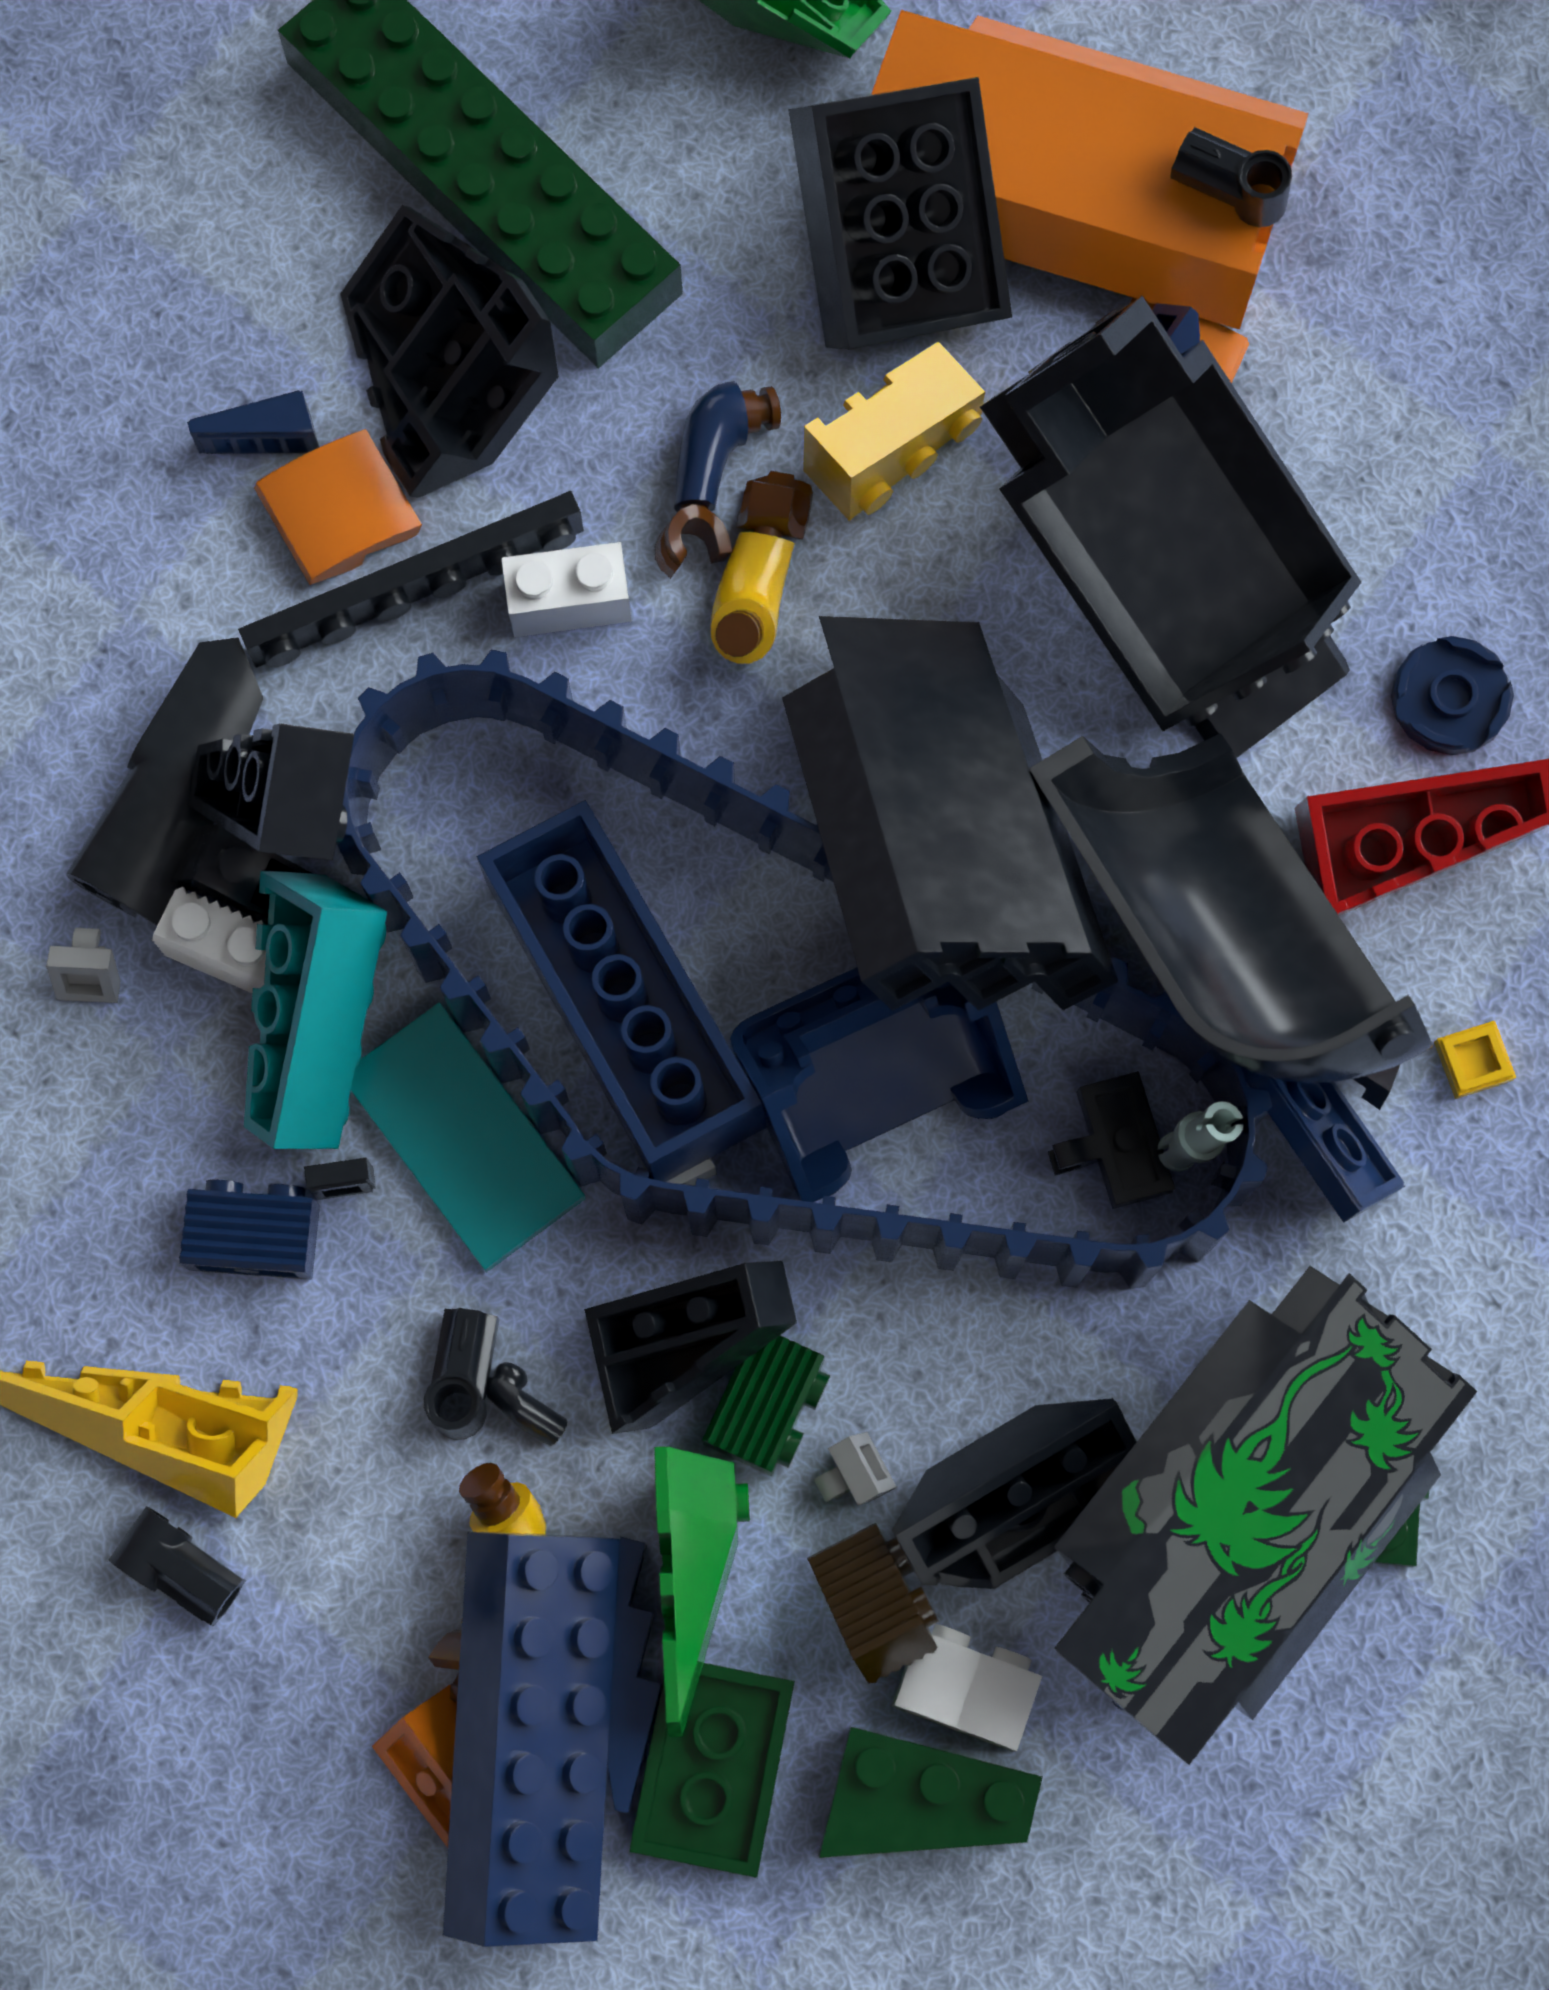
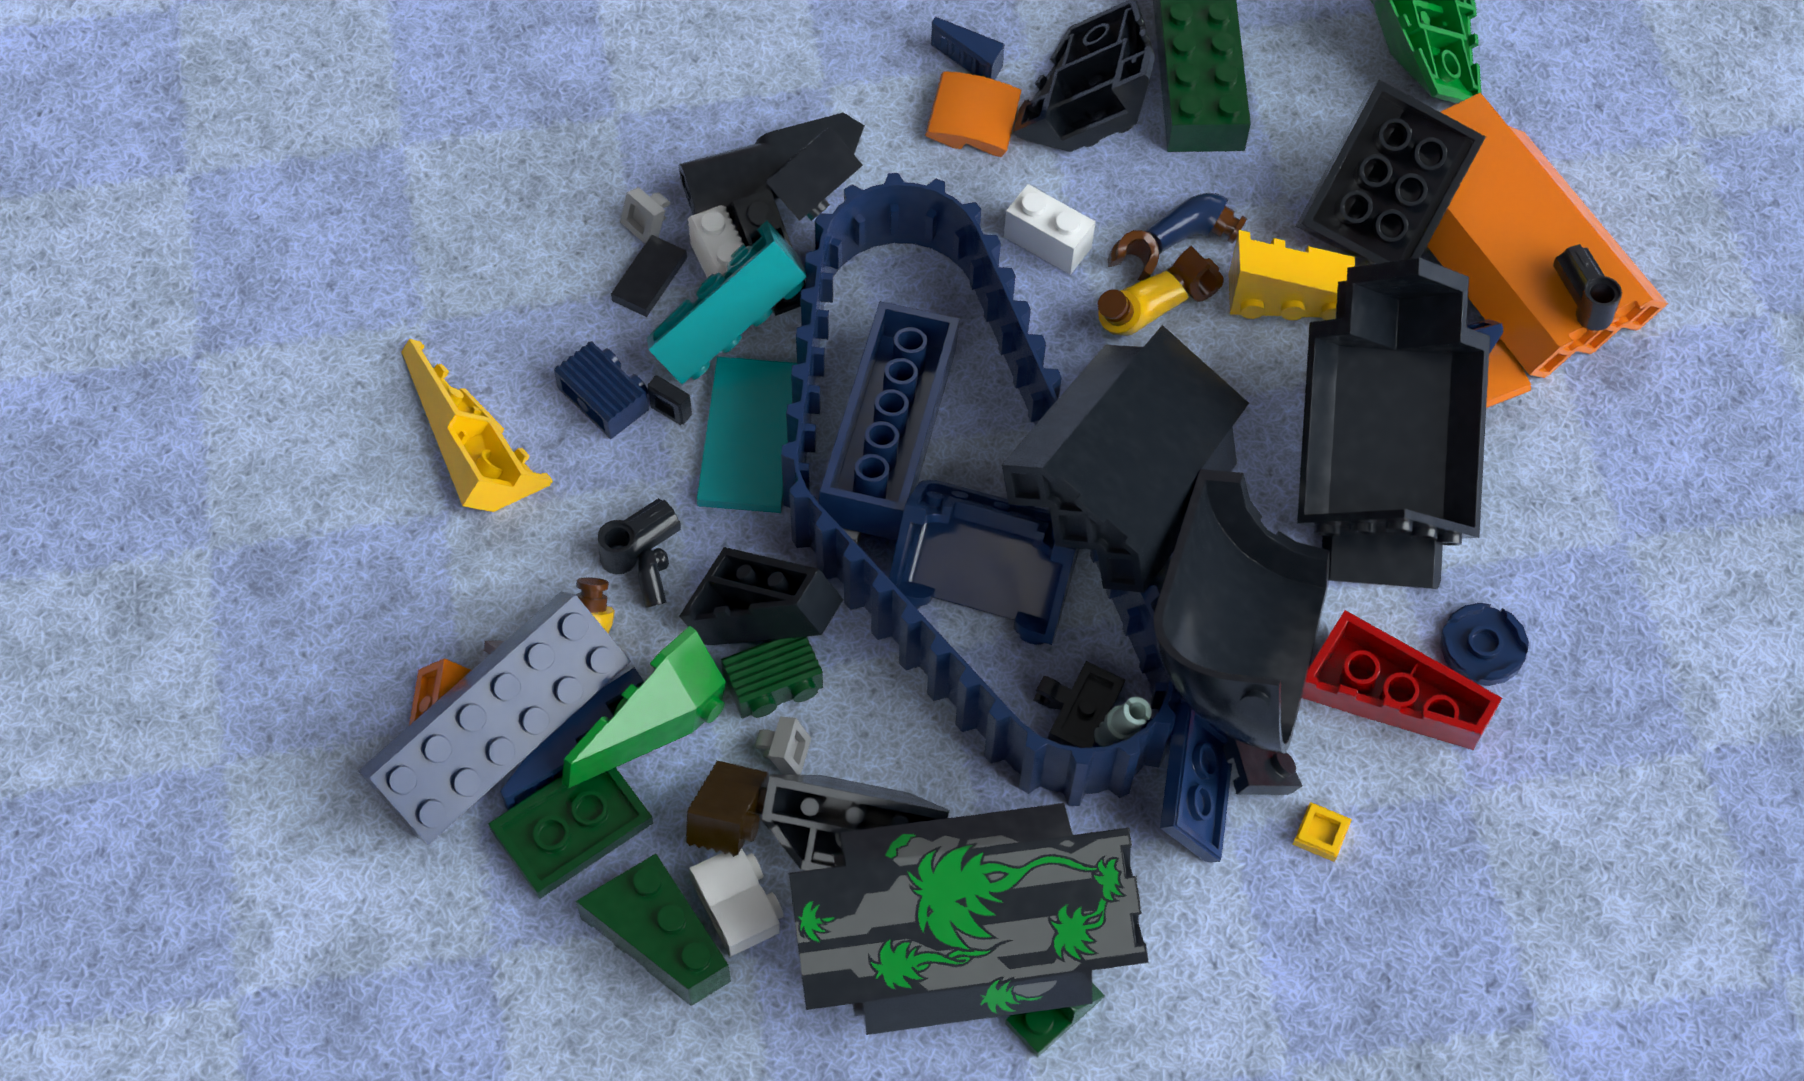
camera: 40 degrees right, 15 degrees down
(160, 1039) = (649, 275): none -> black tile
(167, 1561) = (412, 503): black piece -> none
(391, 590) = (971, 167): black plate -> none

